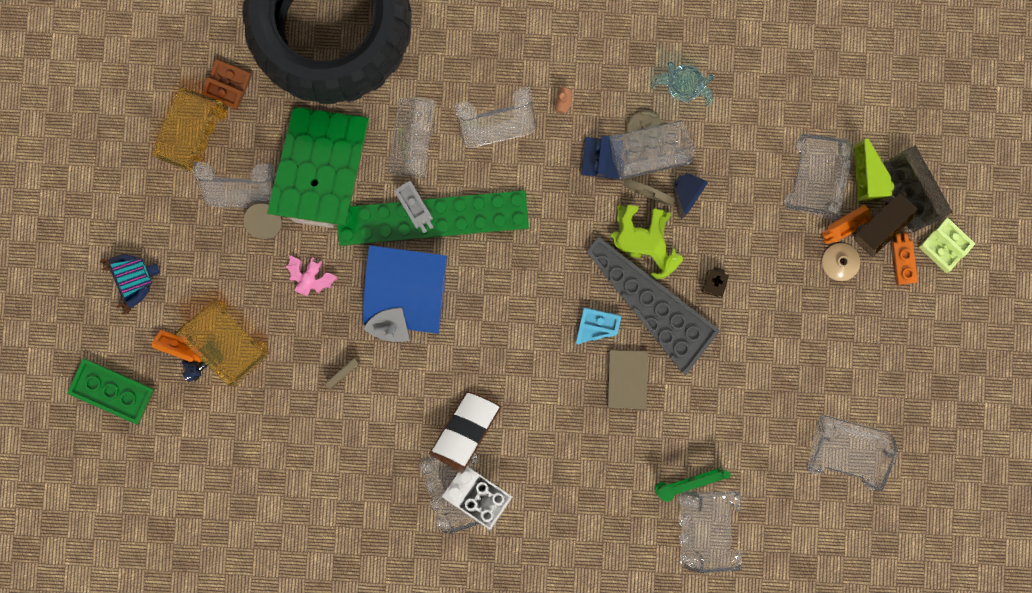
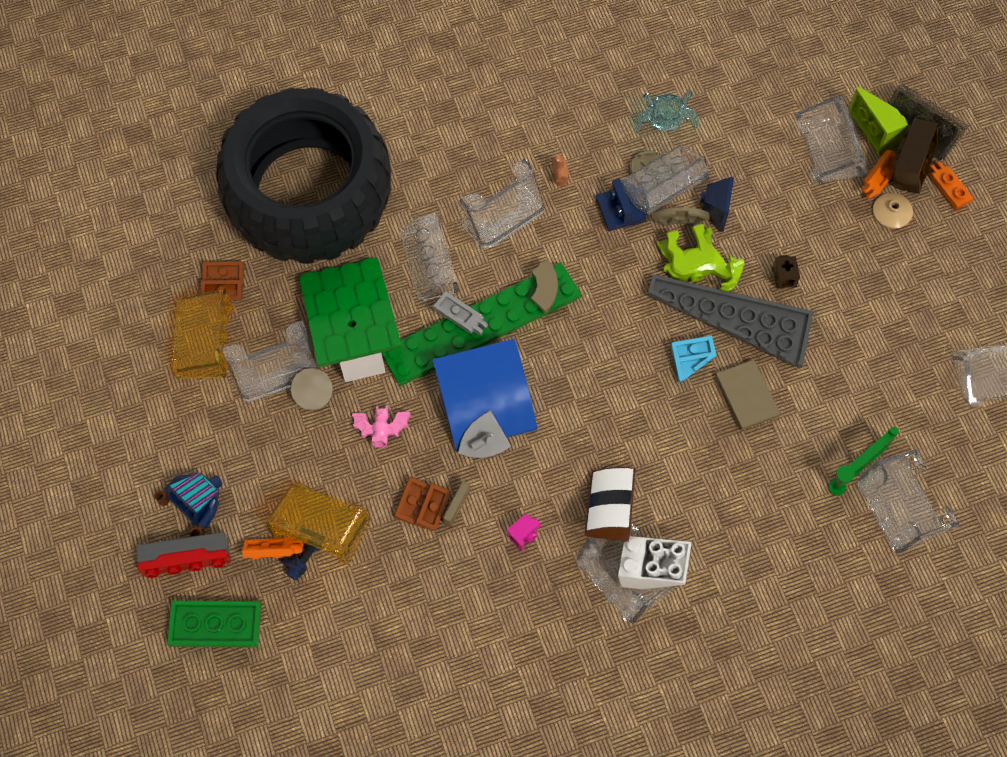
camera: 25 degrees left, 20 degrees down
(105, 322) = (183, 554): none -> piece
(315, 360) = (422, 504): none -> dark orange slope
(387, 420) = (523, 531): none -> dark pink brick
(500, 211) = (546, 286): none -> dark tan tile
(946, 245) = (980, 158): yellowish green slope -> none

